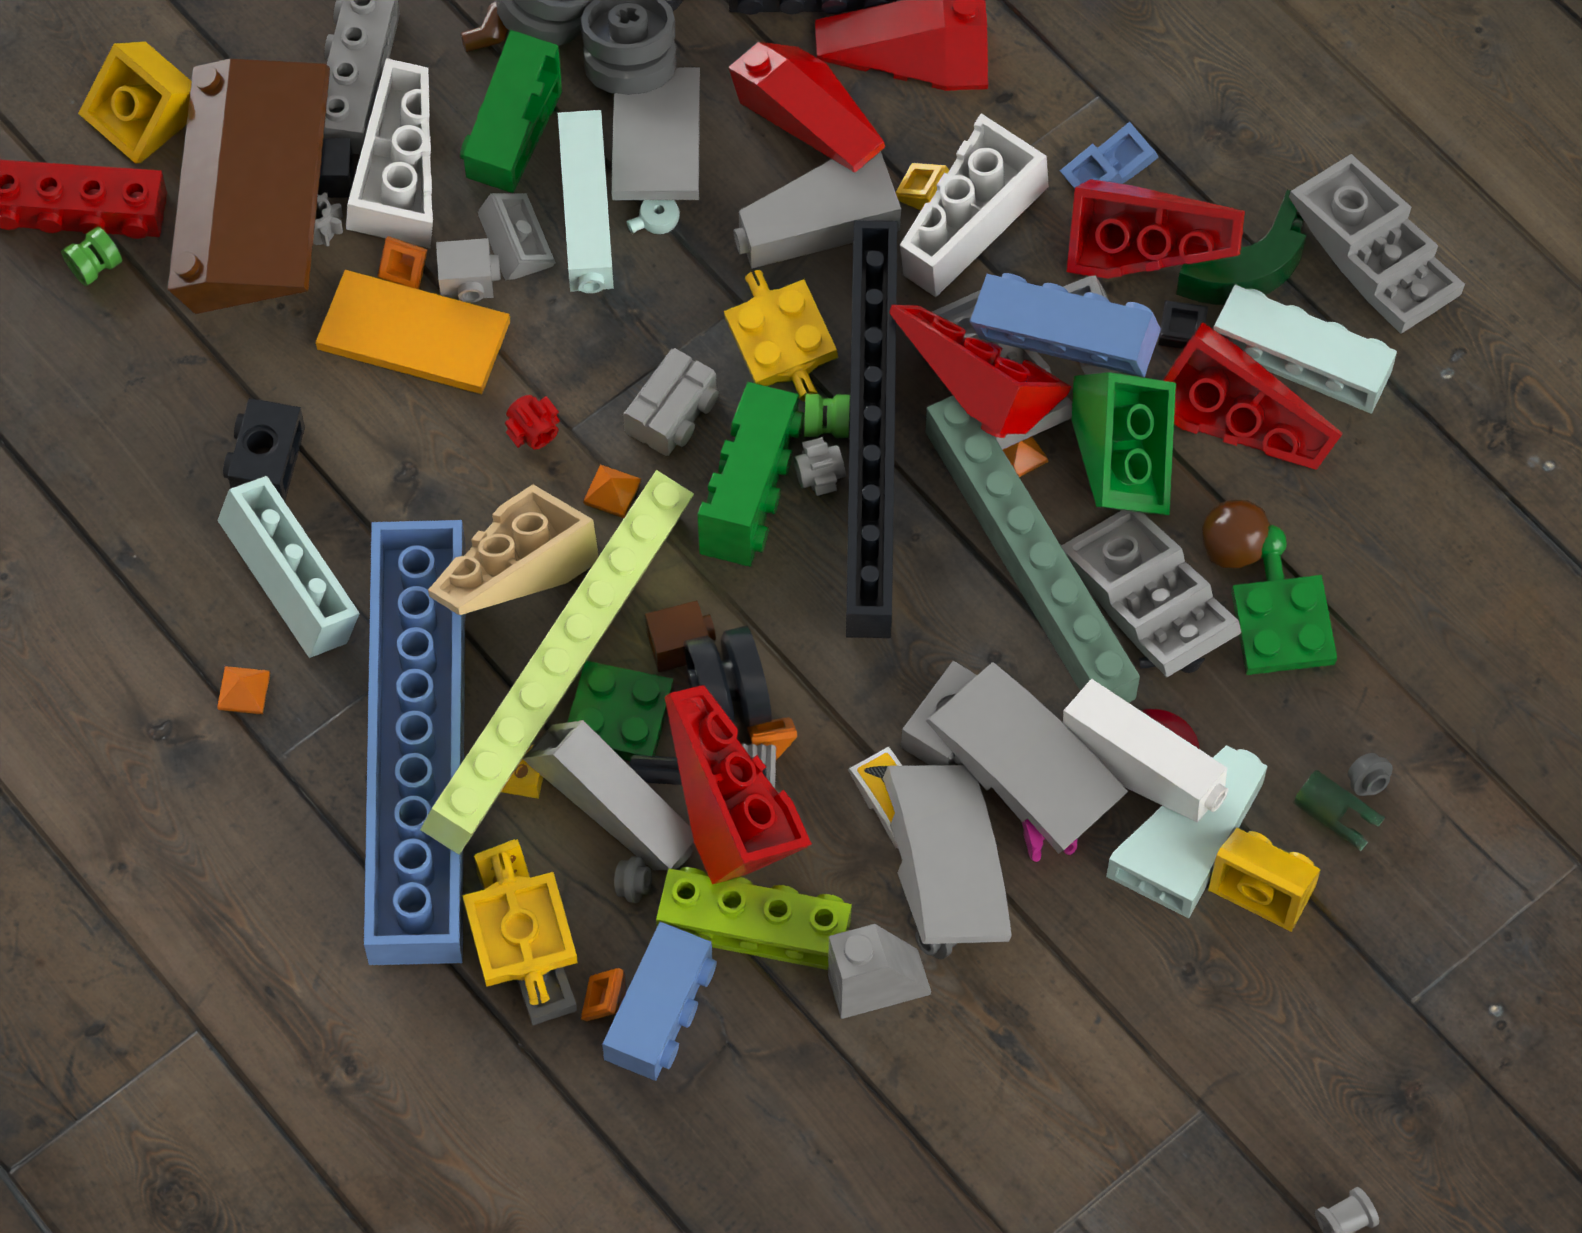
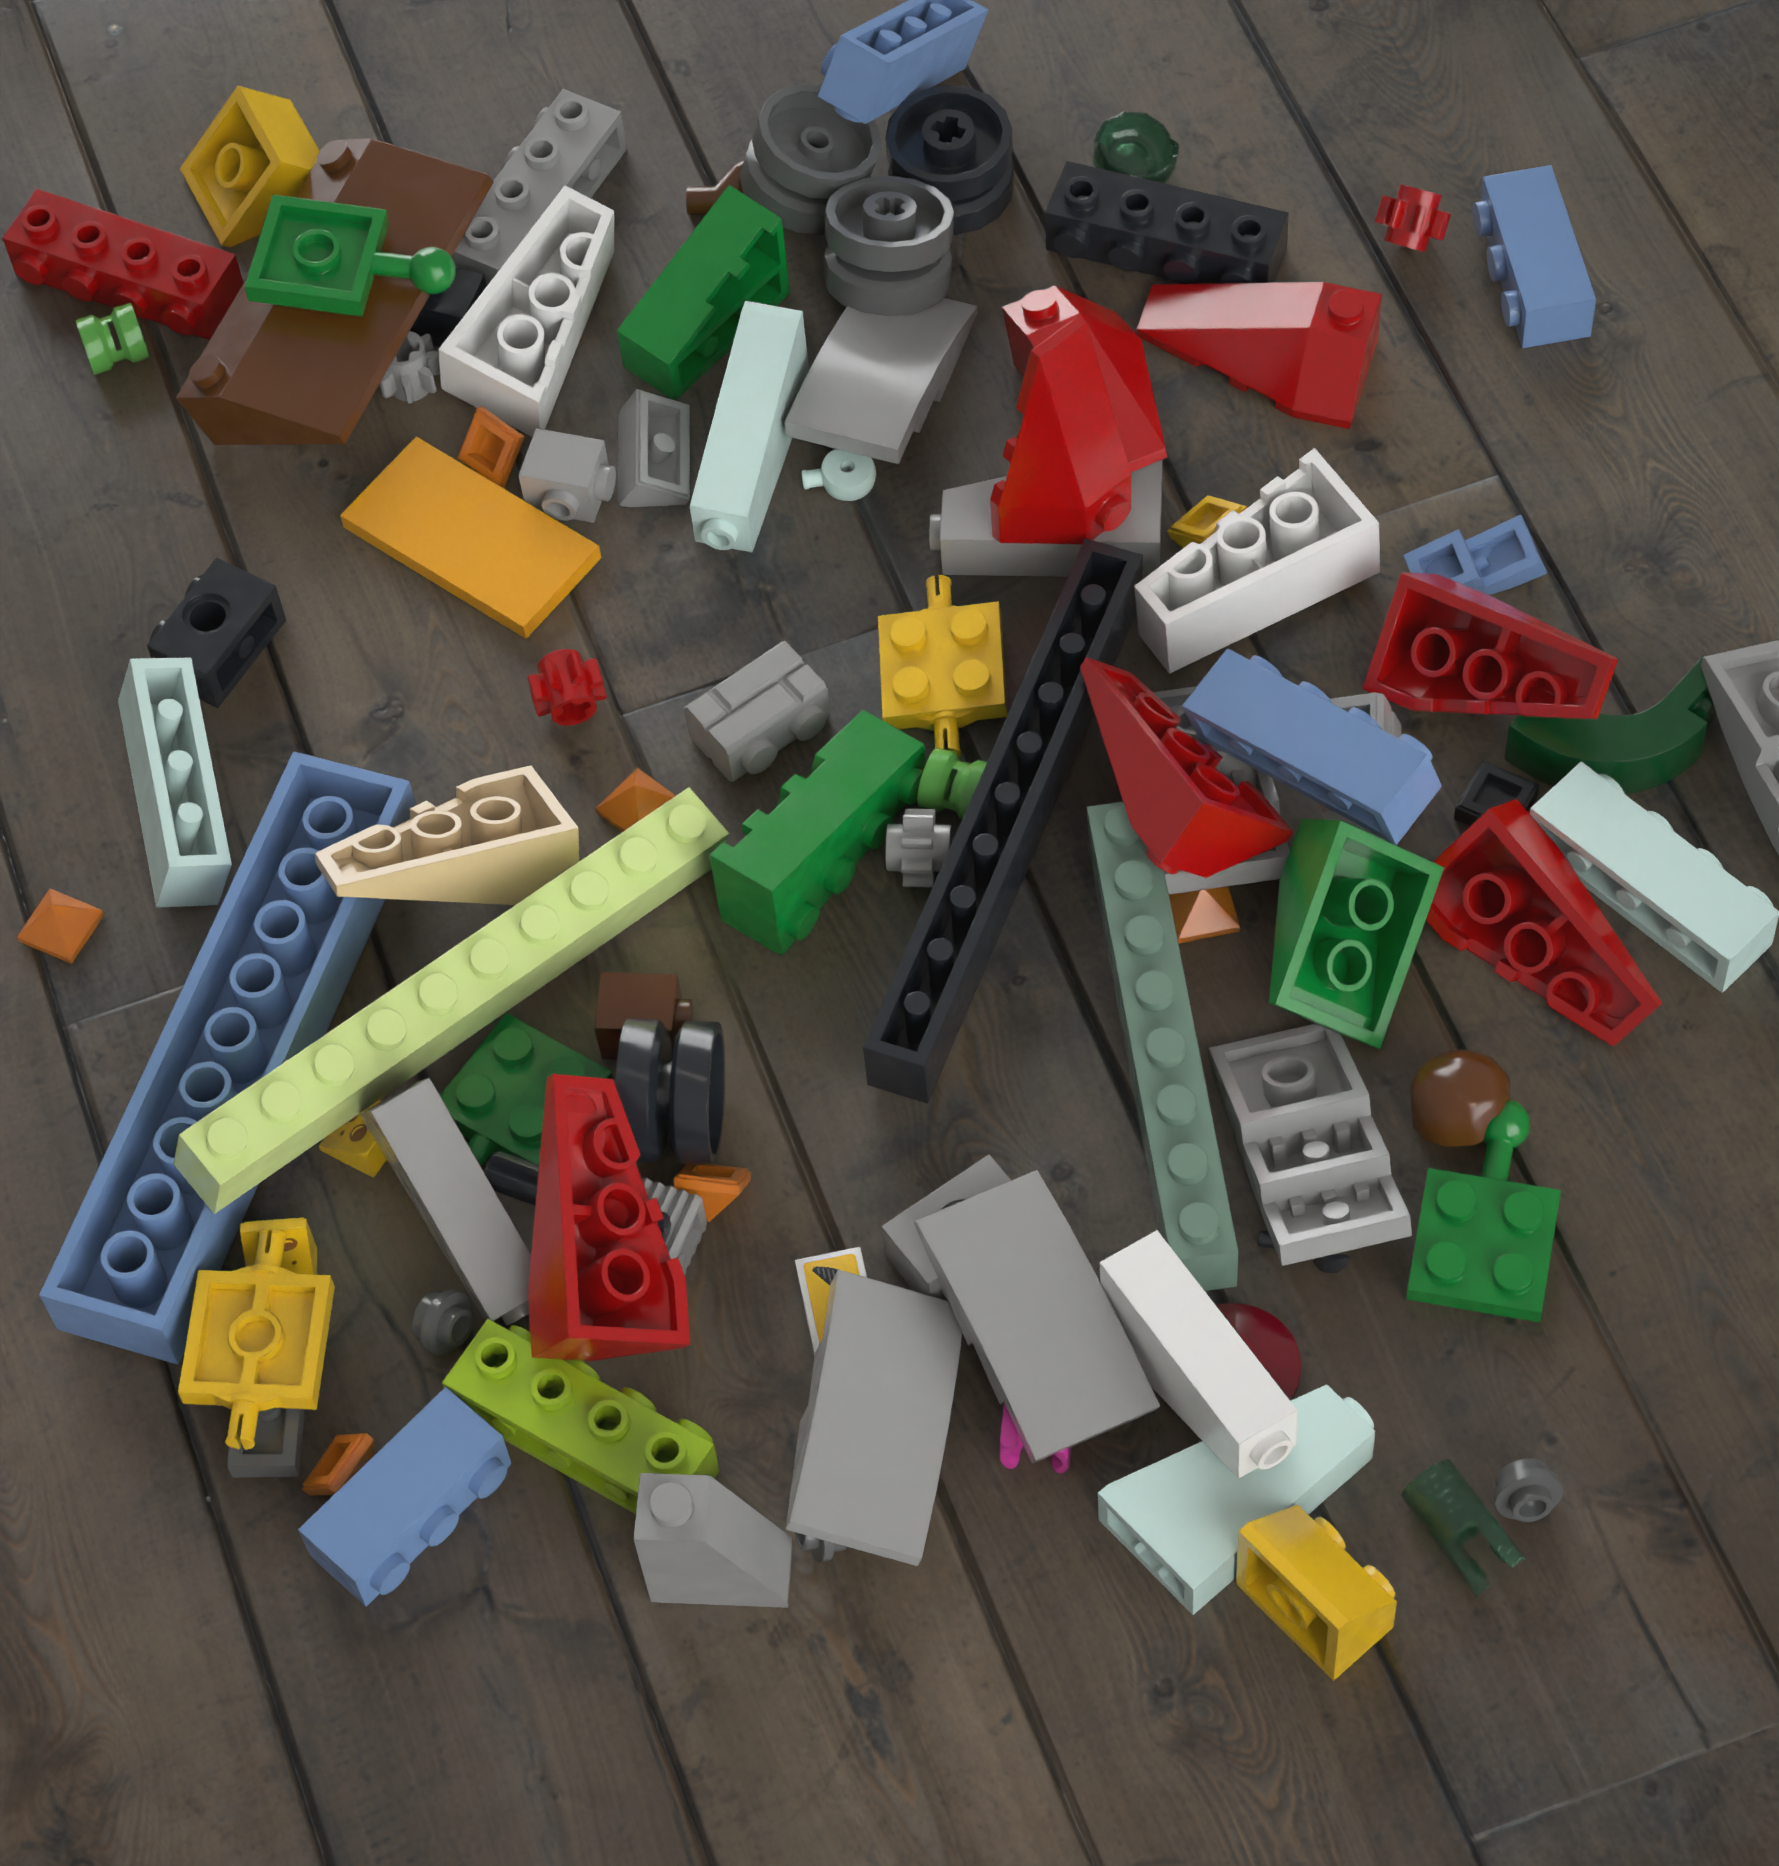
camera: 25 degrees right, 5 degrees down
(242, 157) = (328, 256): none -> green plate
(833, 170) = (1068, 456): none -> red wedge

